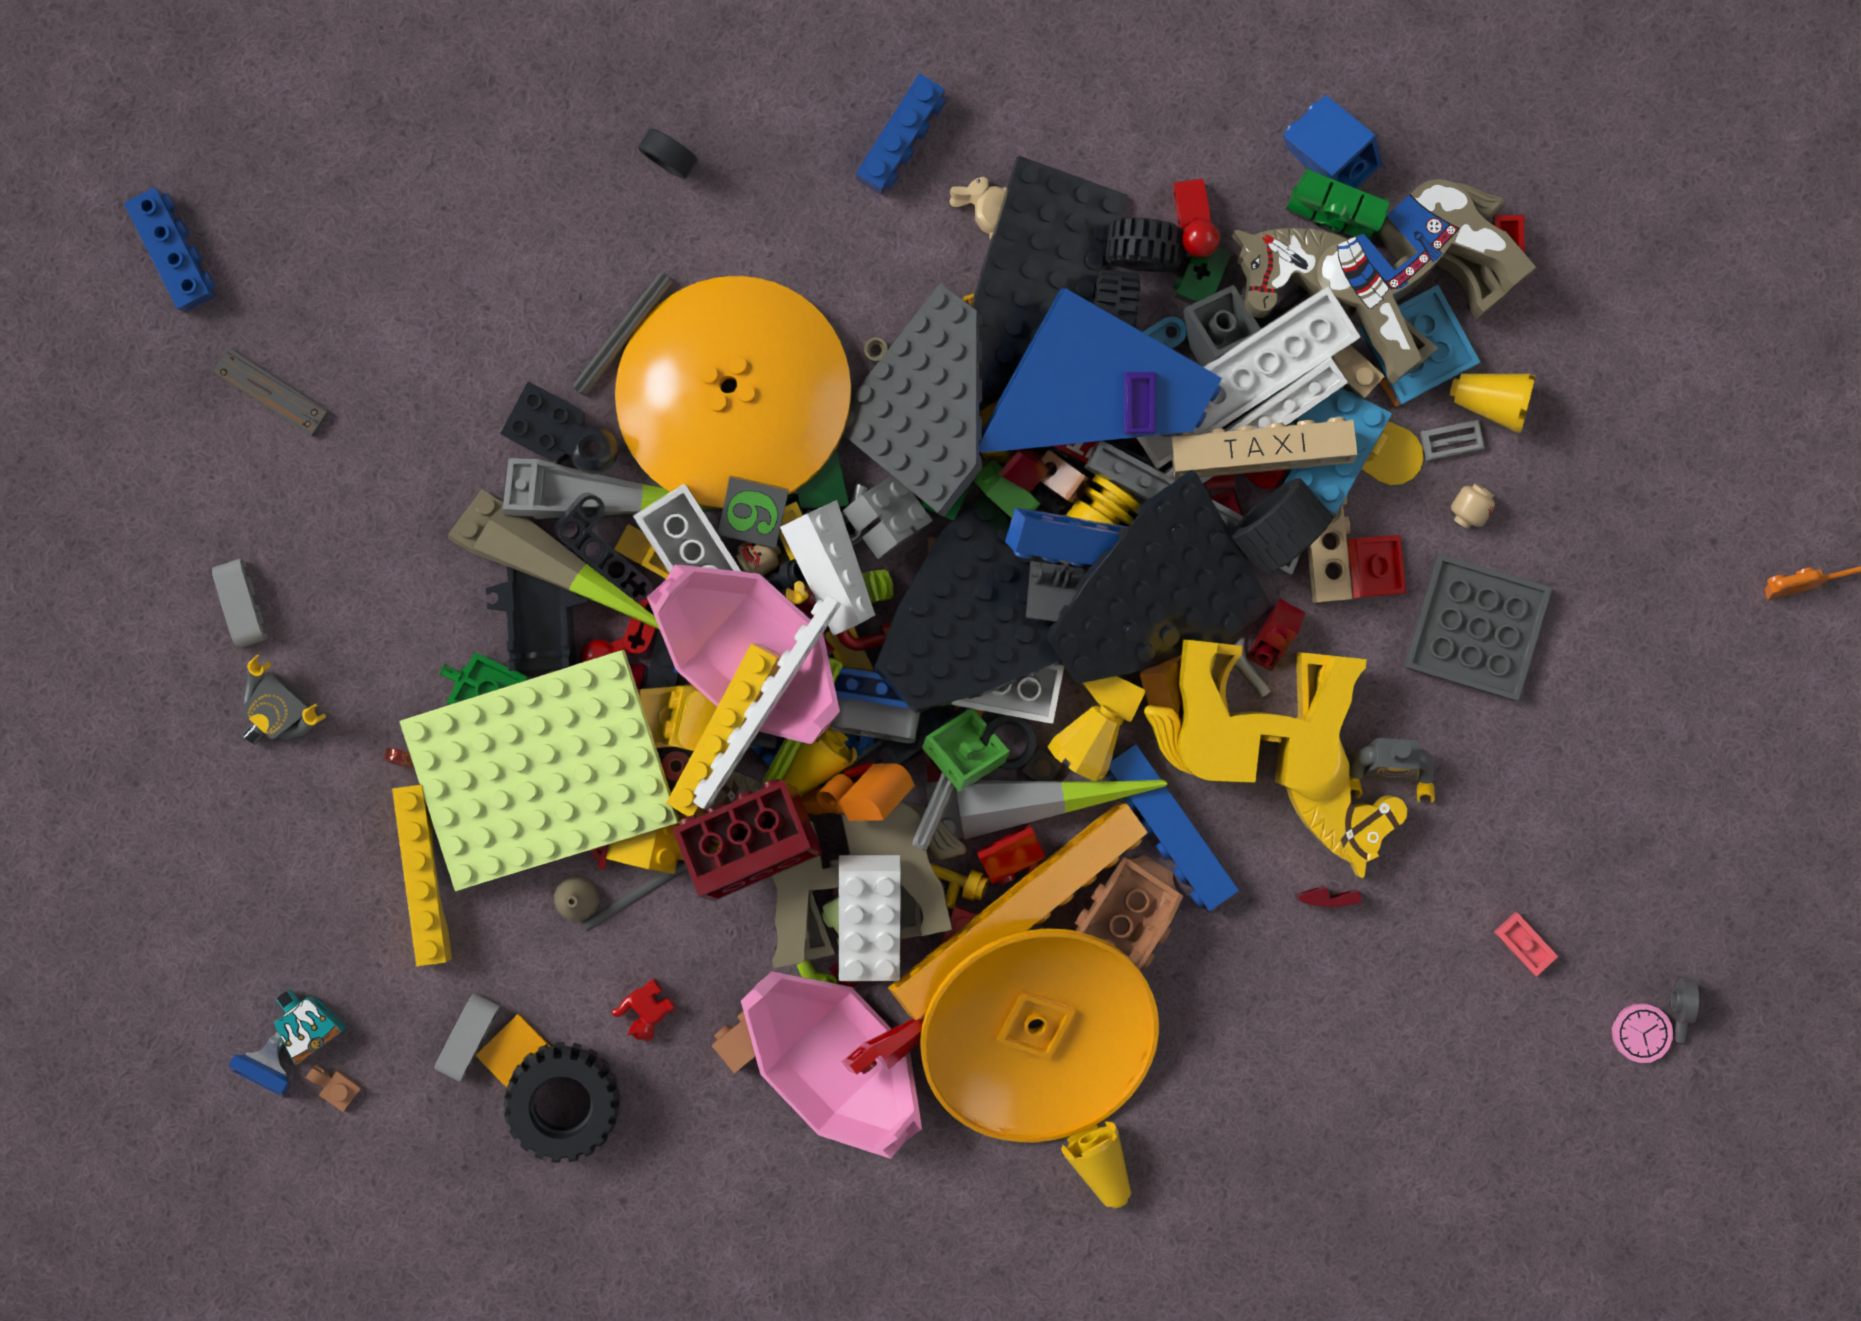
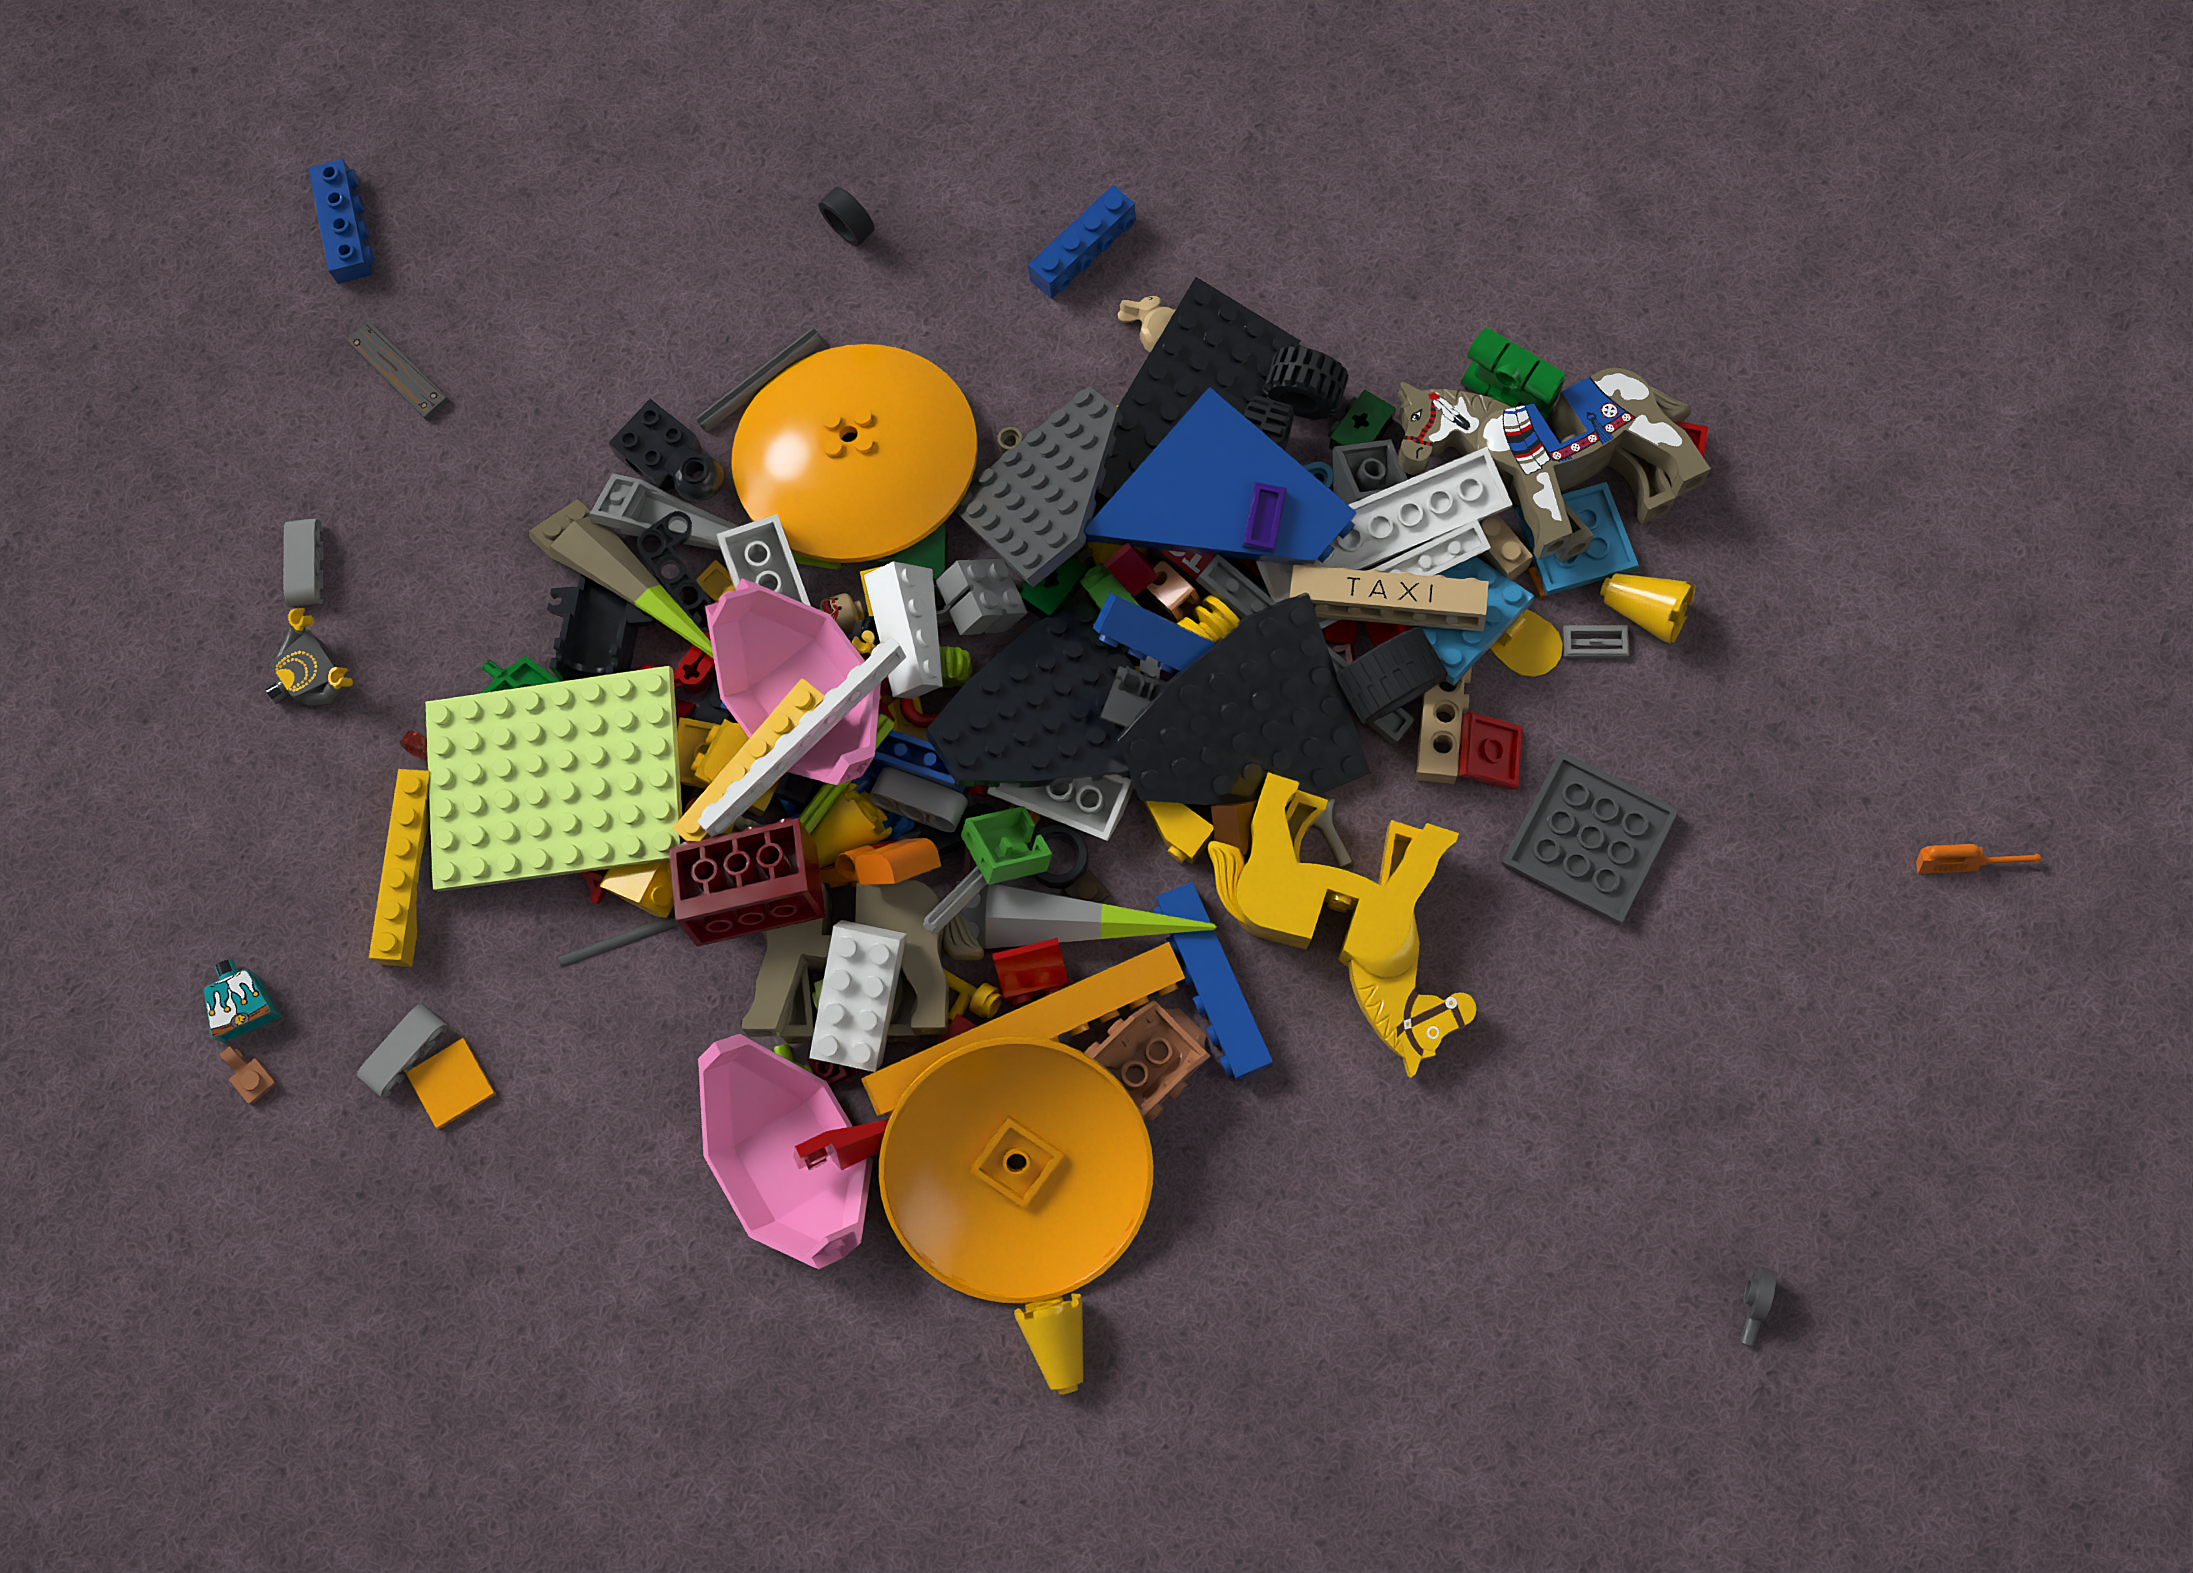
camera: 20 degrees right, 15 degrees down
(263, 1067) = (180, 1036): blue piece -> none
(555, 1140) = (436, 1137): black tyre -> none
(576, 898) = (559, 929): dark tan helmet -> none
(649, 1009) = (604, 1062): red animal -> none
(734, 1044) = (683, 1119): nougat slope -> none
(753, 511) = (841, 562): dark grey tile -> none
(1088, 742) = (1141, 866): yellow cone -> none
(1193, 216) = (1364, 379): red beam -> none
(1276, 634) = (1367, 801): dark red slope -> none
(1320, 897) = (1362, 1092): dark red slope -> none
(1334, 143) = (1526, 320): blue slope -> none
(1393, 760) = (1471, 956): dark grey torso -> none
(1473, 506) = (1606, 710): tan head -> none
(1525, 944) = (1586, 1193): coral plate -> none
(1642, 1033) = (1705, 1325): bright pink tile -> none

